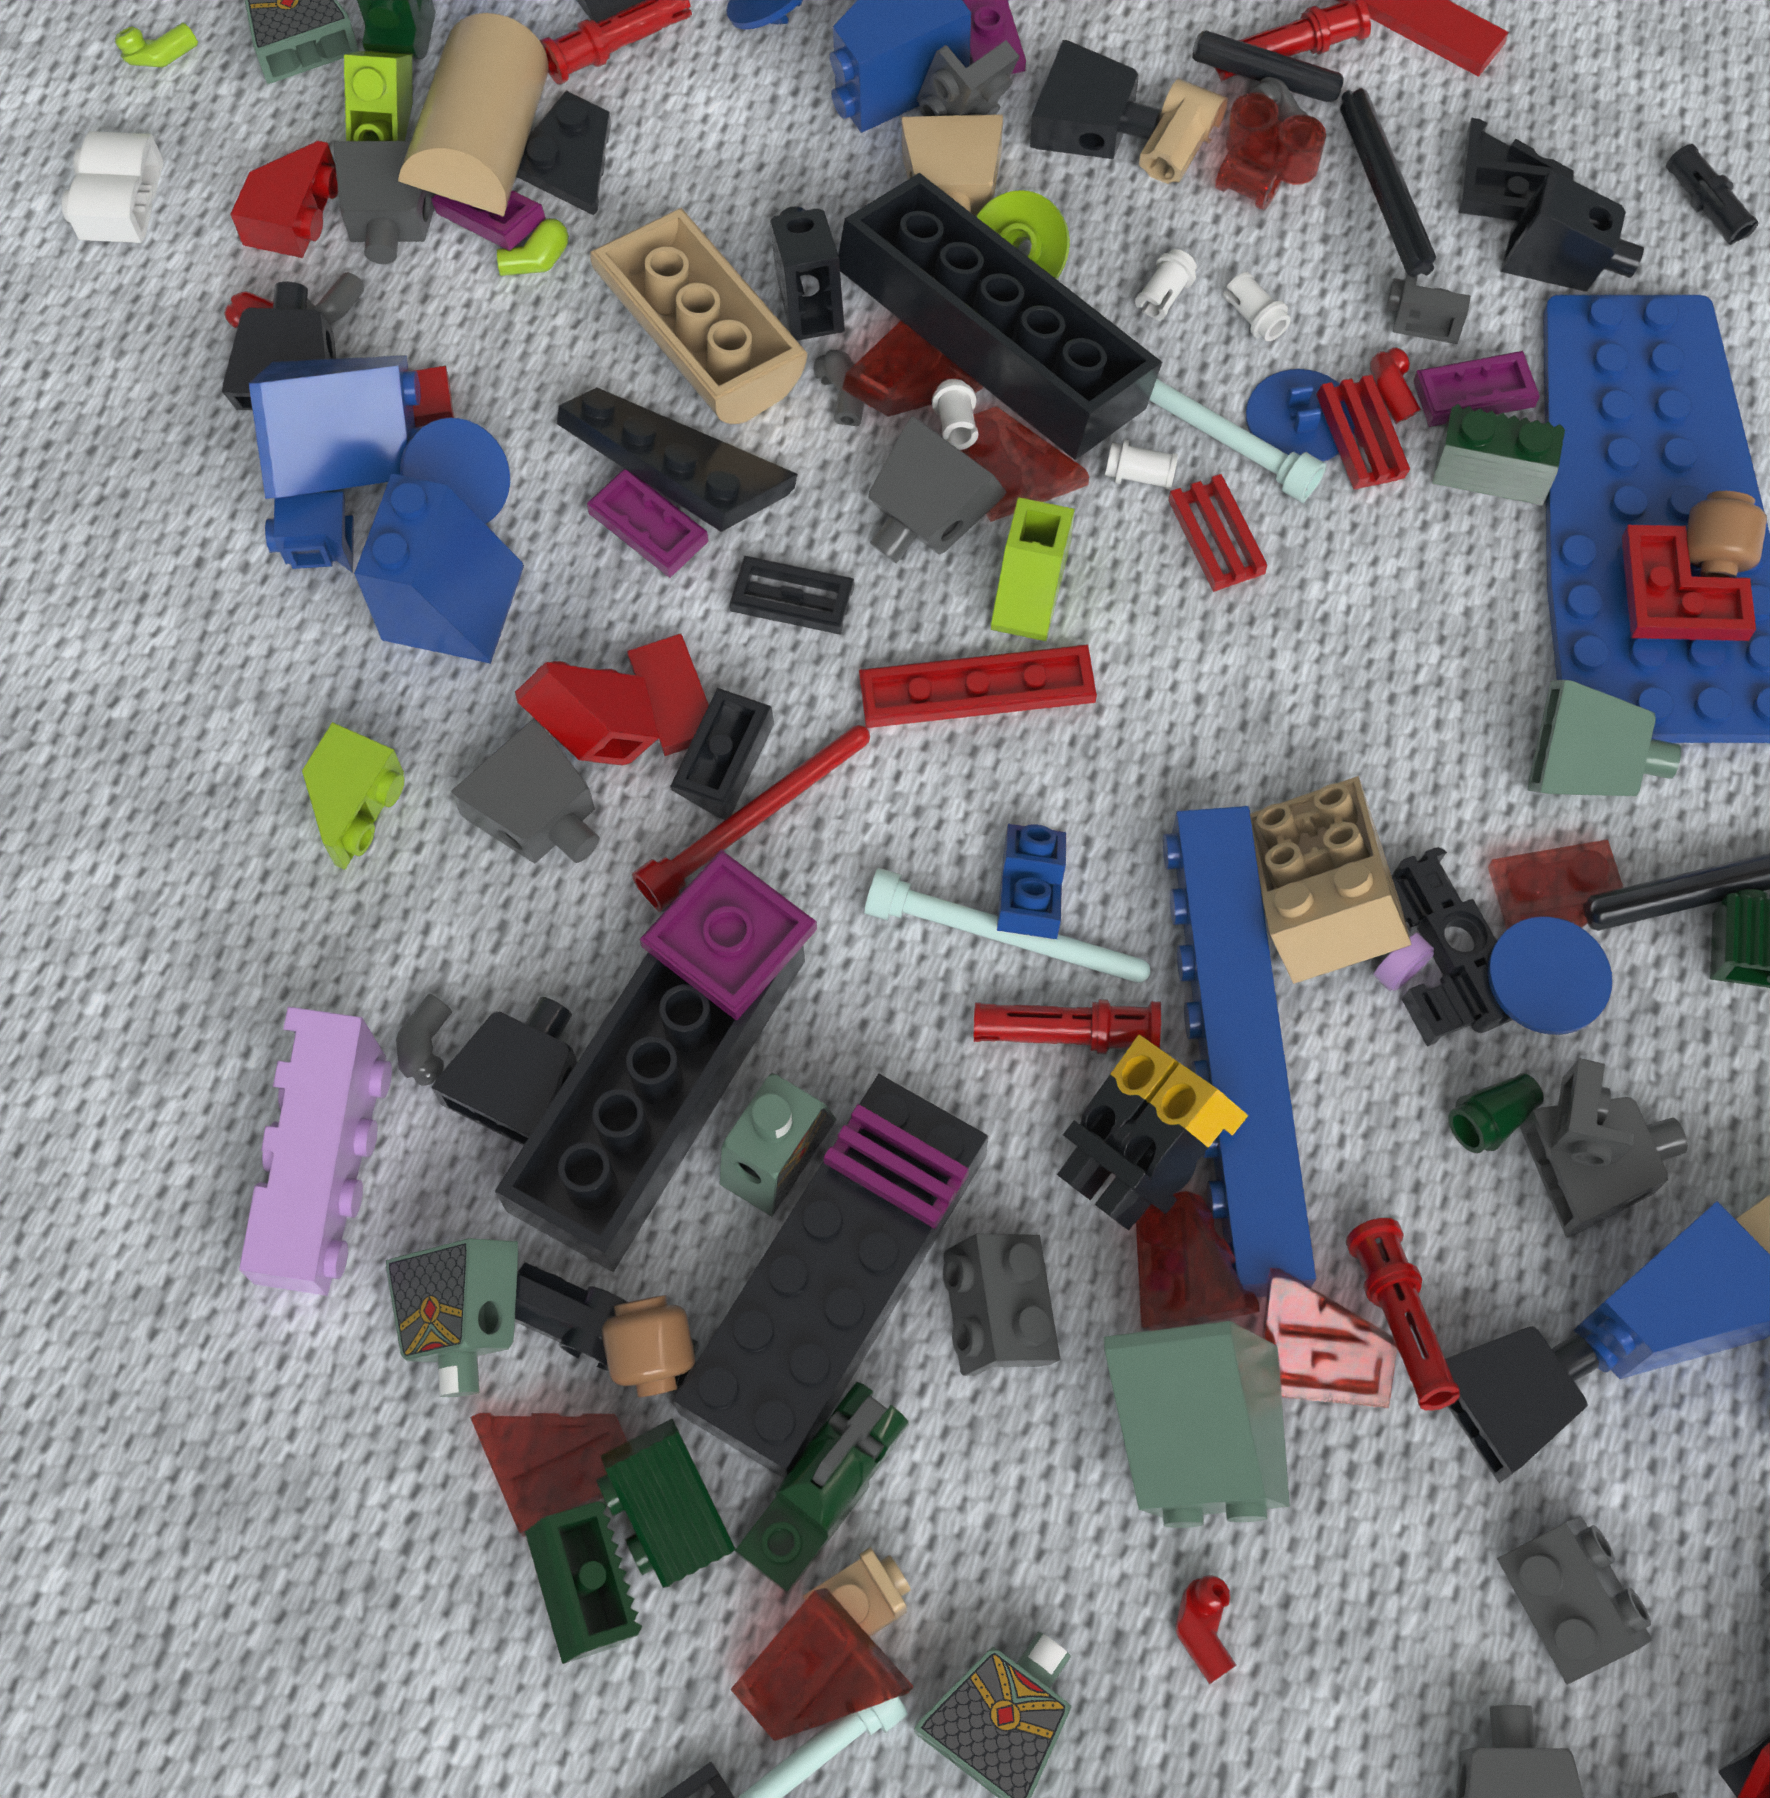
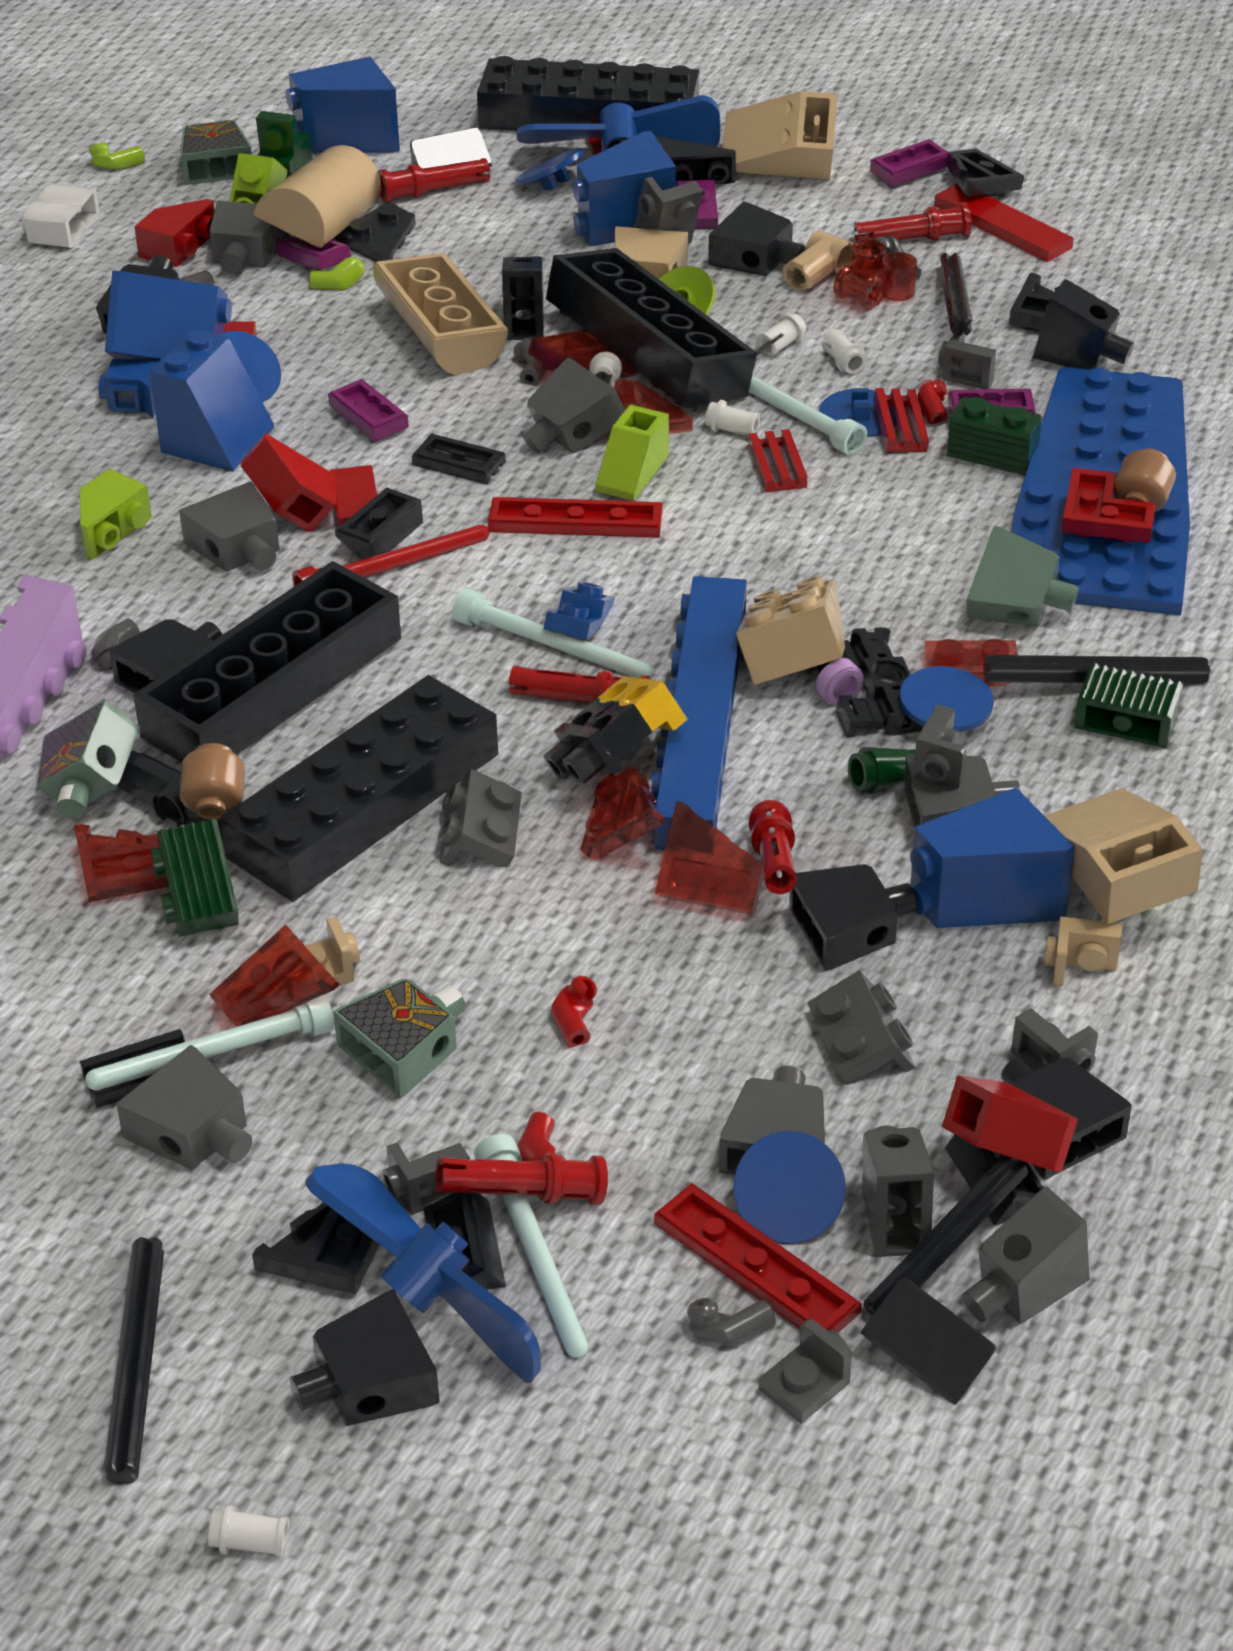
camera: 10 degrees right, 25 degrees down
(582, 1581) = (122, 911): dark green brick -> none
(680, 462) = (400, 380): black wing -> none
(728, 934) = (345, 585): magenta tile -> none
(775, 1140) = (338, 699): sand green torso -> none
(822, 1487) = (319, 886): dark green plate -> none
(910, 1145) = (428, 706): magenta tile -> none
(1201, 1421) = (600, 870): sand green slope -> none
(1261, 63) = (874, 226): black axle -> none
(1690, 169) = (1189, 320): black pin -> none

